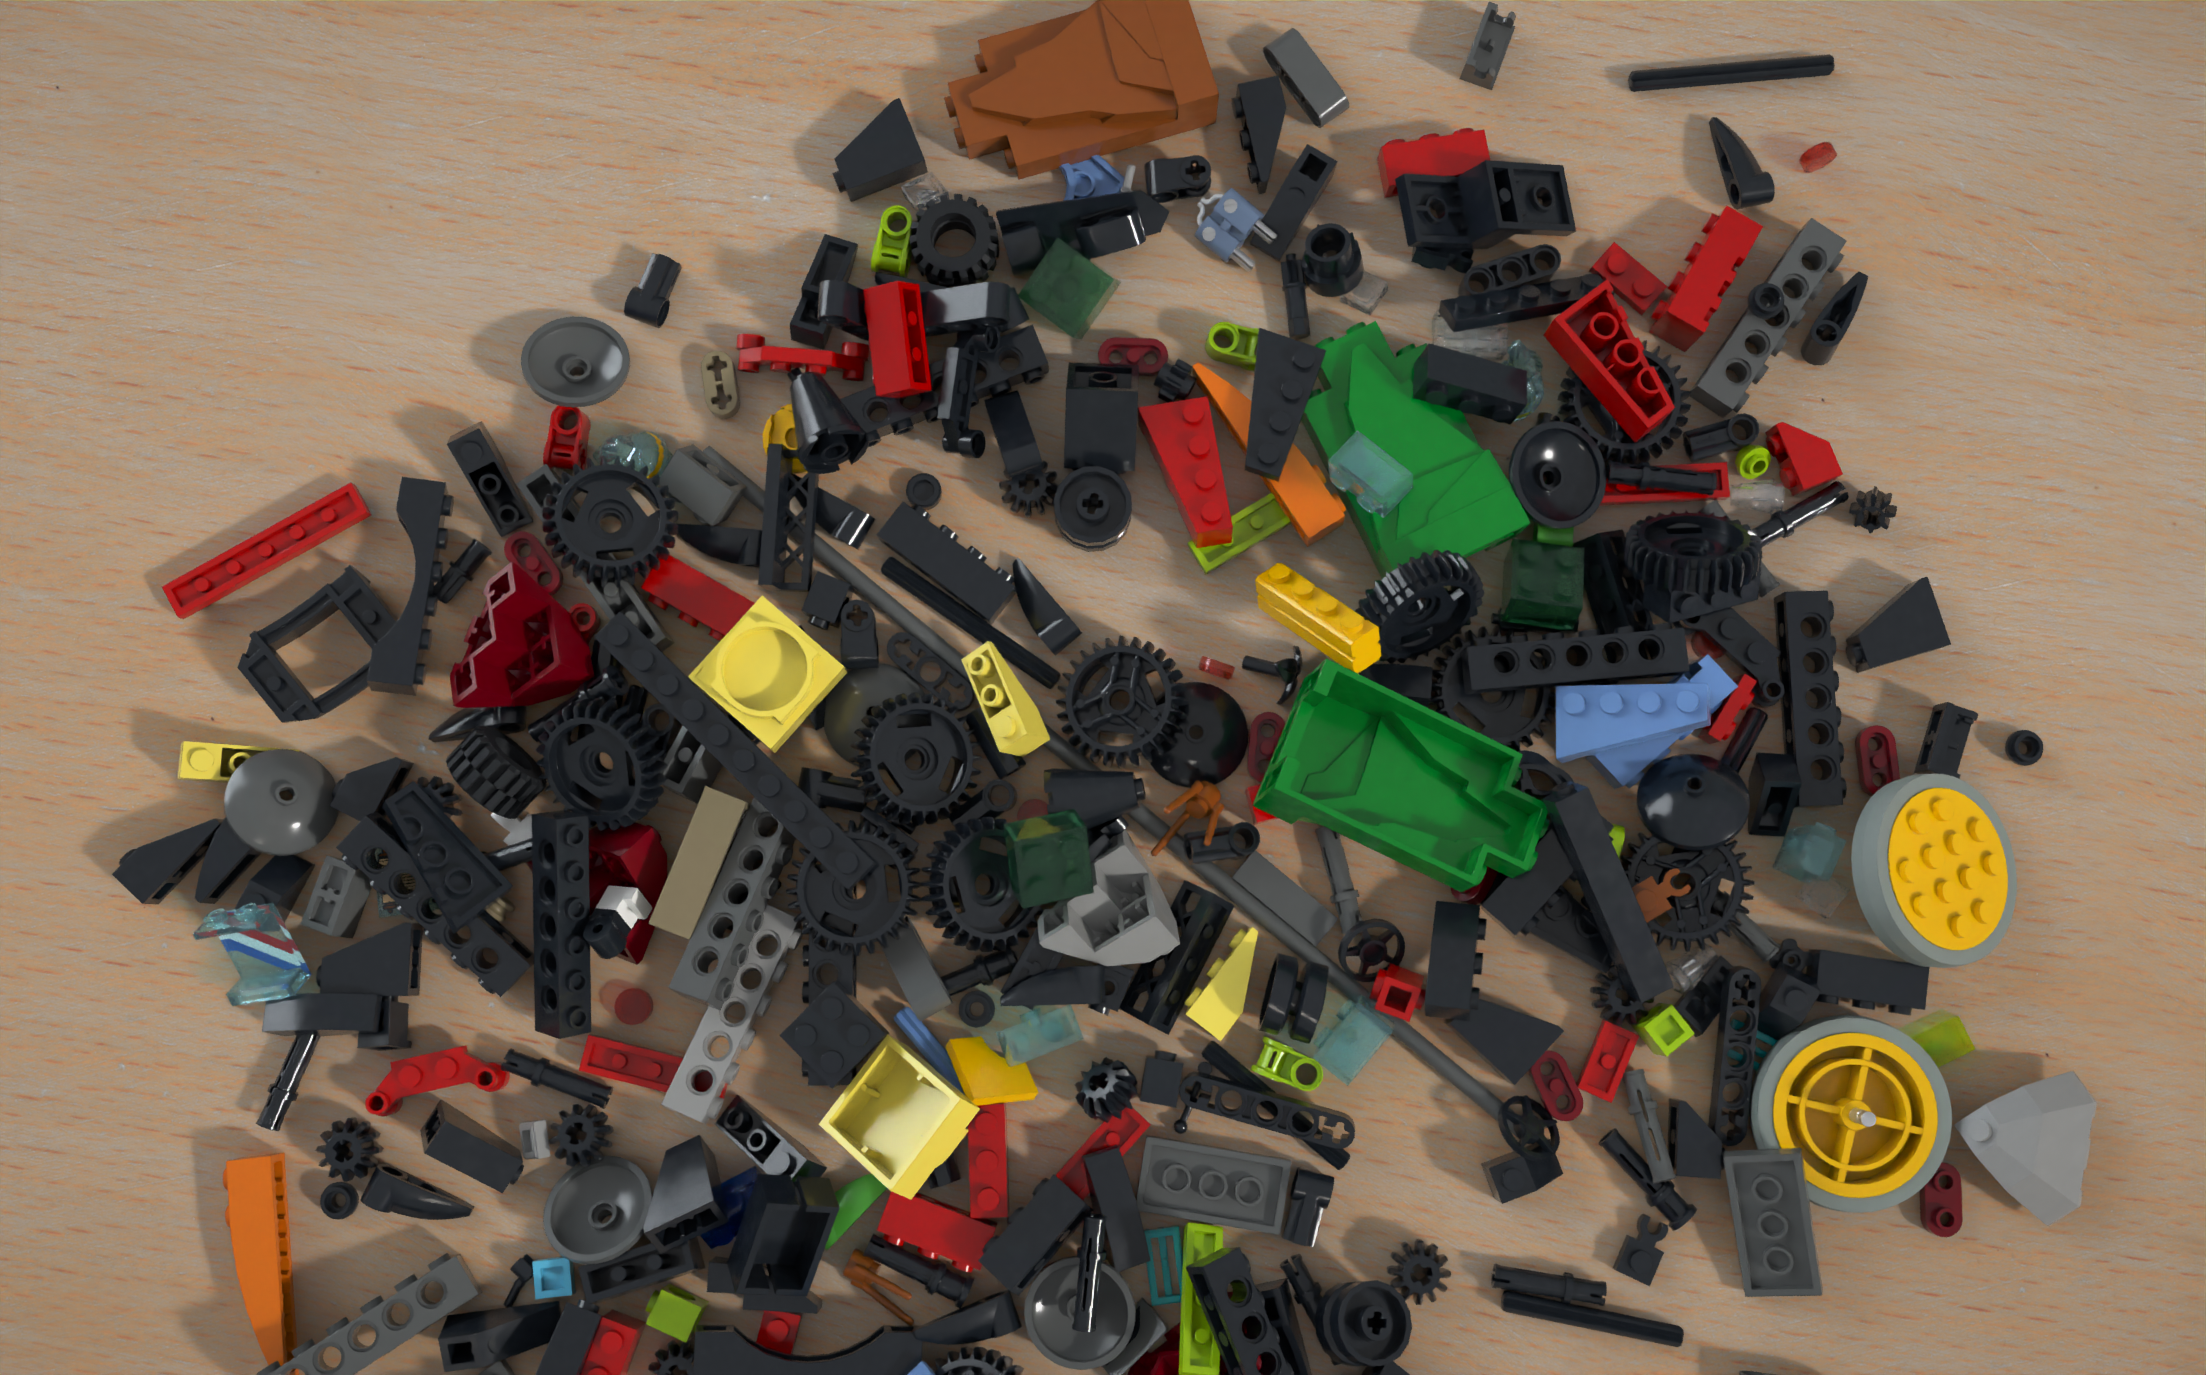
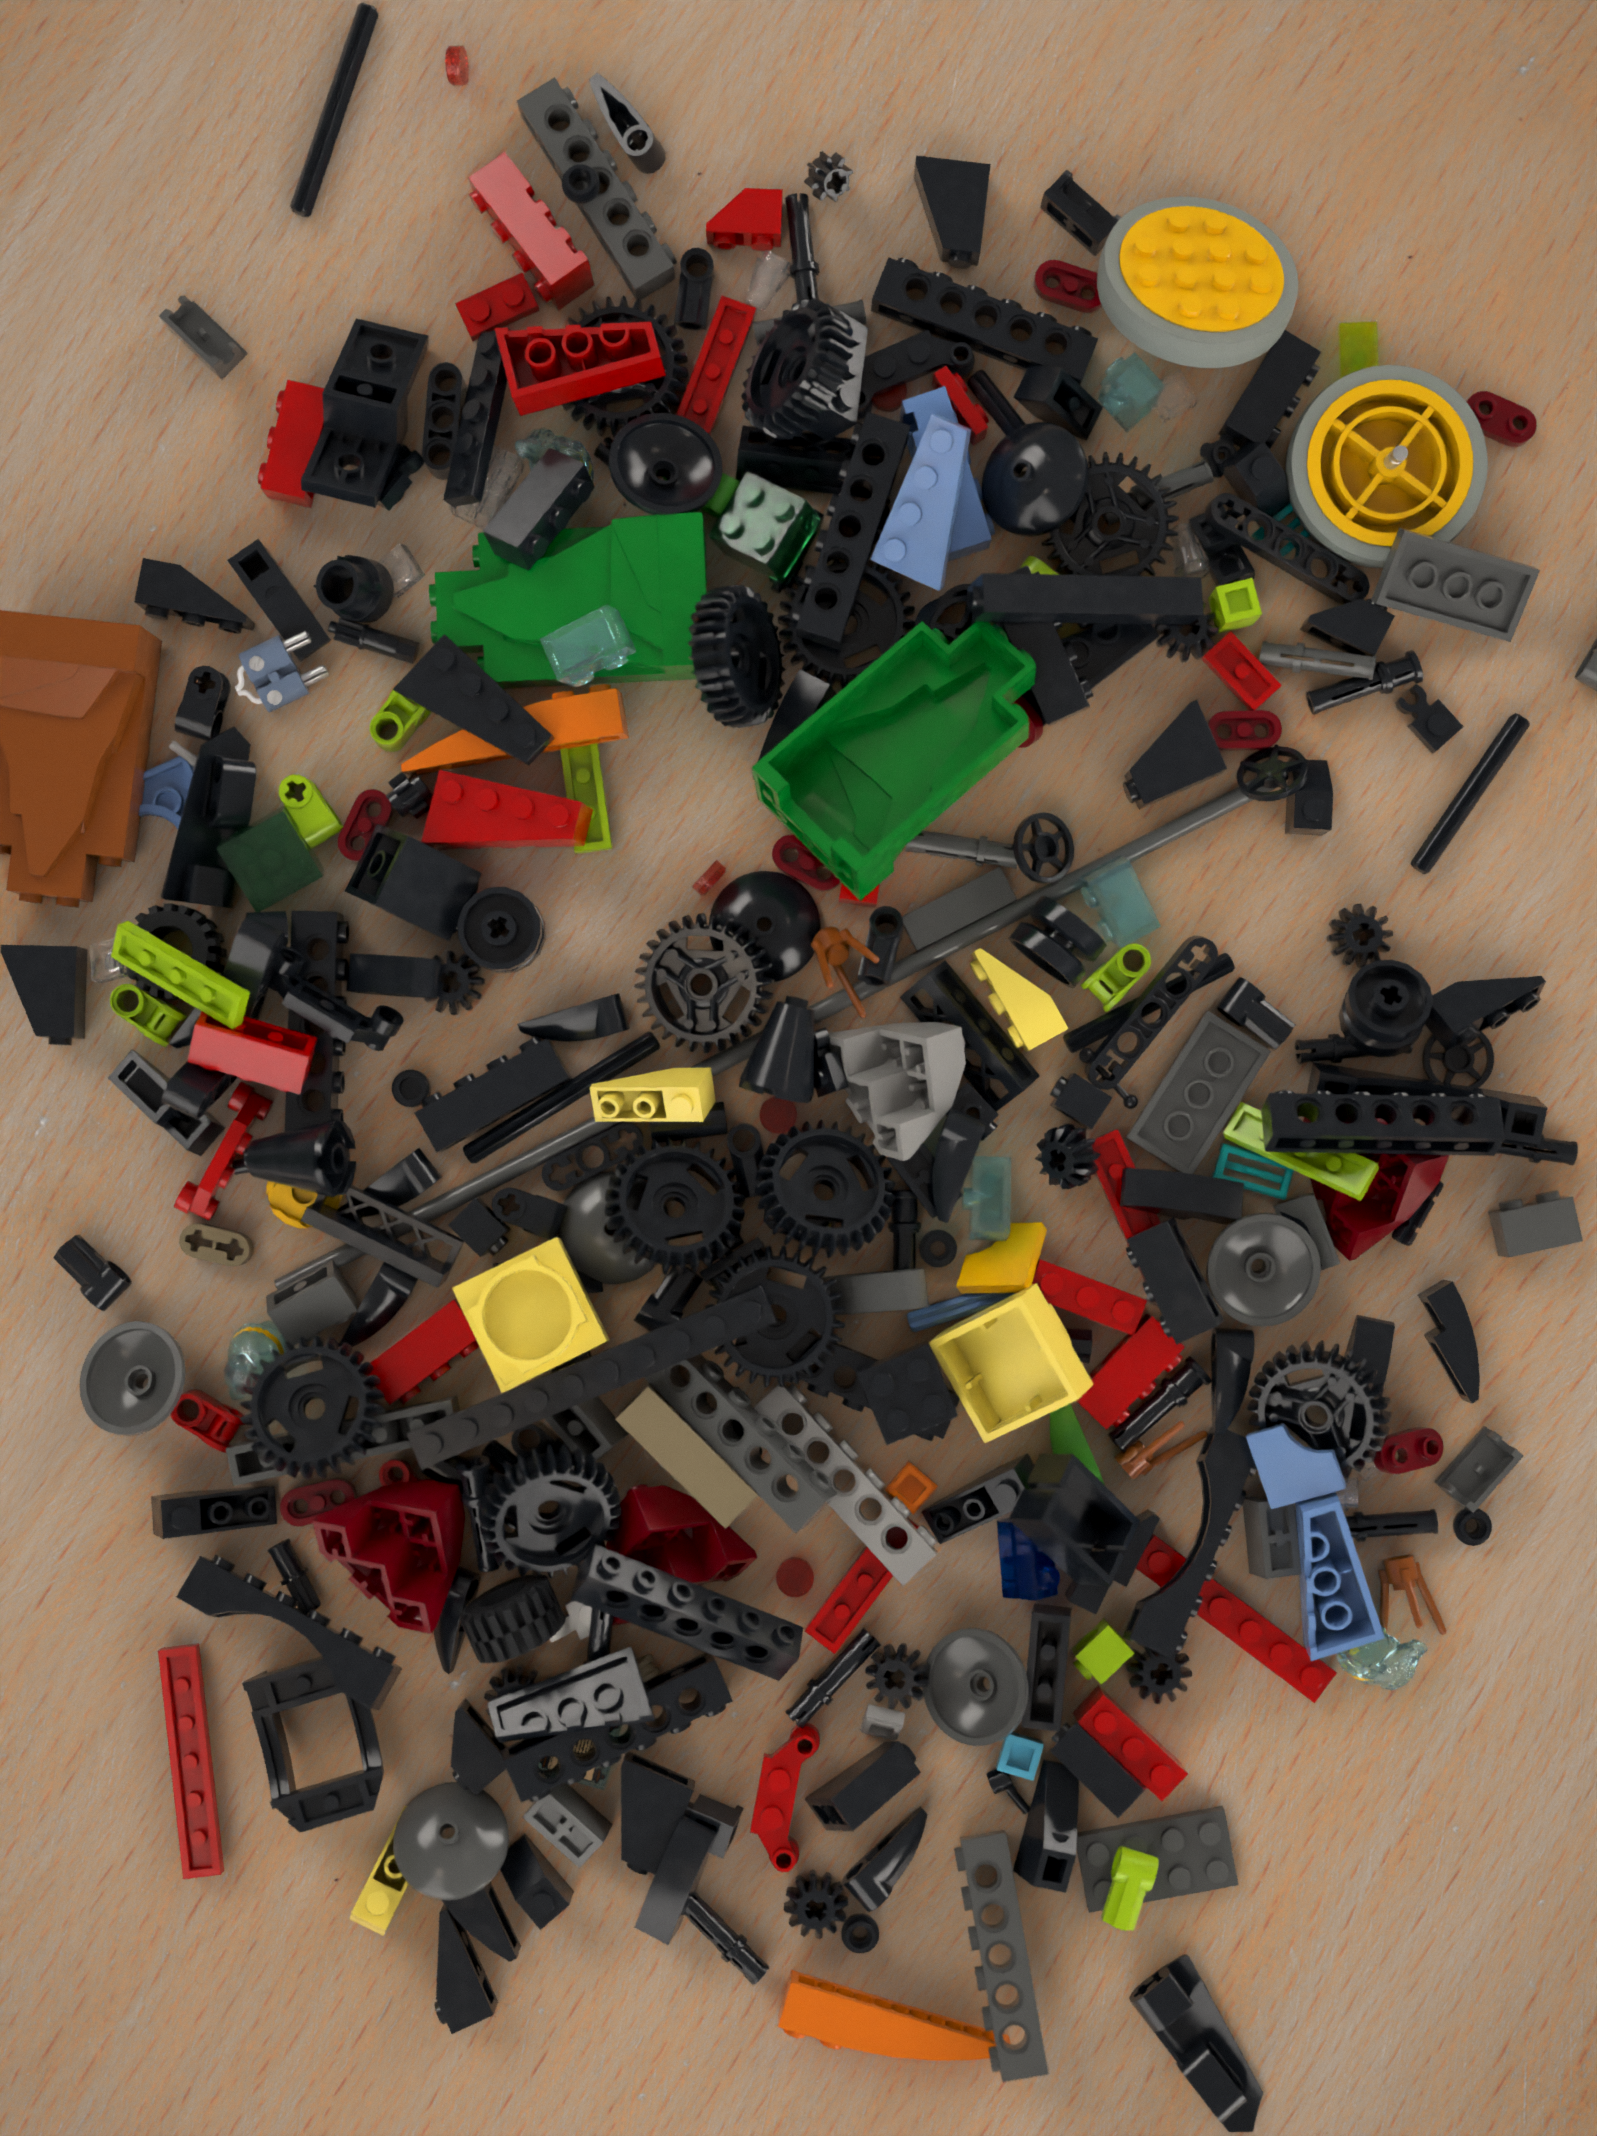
camera: 65 degrees left, 5 degrees up
(259, 950) = (590, 1917): clear light blue panel -> none
(614, 920) = (706, 1560): leg -> none
(686, 1196) = (998, 1597): black slope -> none
(755, 1076) = (911, 1487): none -> orange tile
(935, 252) = (180, 974): none -> lime plate
(1048, 858) = (827, 1117): clear green brick -> none
(1091, 1257) = (1218, 1237): black pin -> none
(1122, 308) = (313, 814): none -> lime piece
(1285, 669) = (740, 811): black plant -> none
(1306, 77) = (155, 531): dark grey beam -> none
(1318, 618) = (705, 758): yellow brick -> none
(1398, 992) = (1093, 839): red brick -> none
(1454, 961) = (1088, 773): black brick -> none
(1547, 1284) = (1430, 807): black pin -> none
(1653, 897) = (1108, 559): dark orange plate -> none
(1673, 479) = (702, 379): black pin -> none
(1740, 171) = (439, 147): black piece -> none
(1752, 461) = (731, 270): lime plate -> none
(2033, 744) = (1120, 131): black plate -> none
(2036, 1143) = (1486, 306): light grey brick -> none

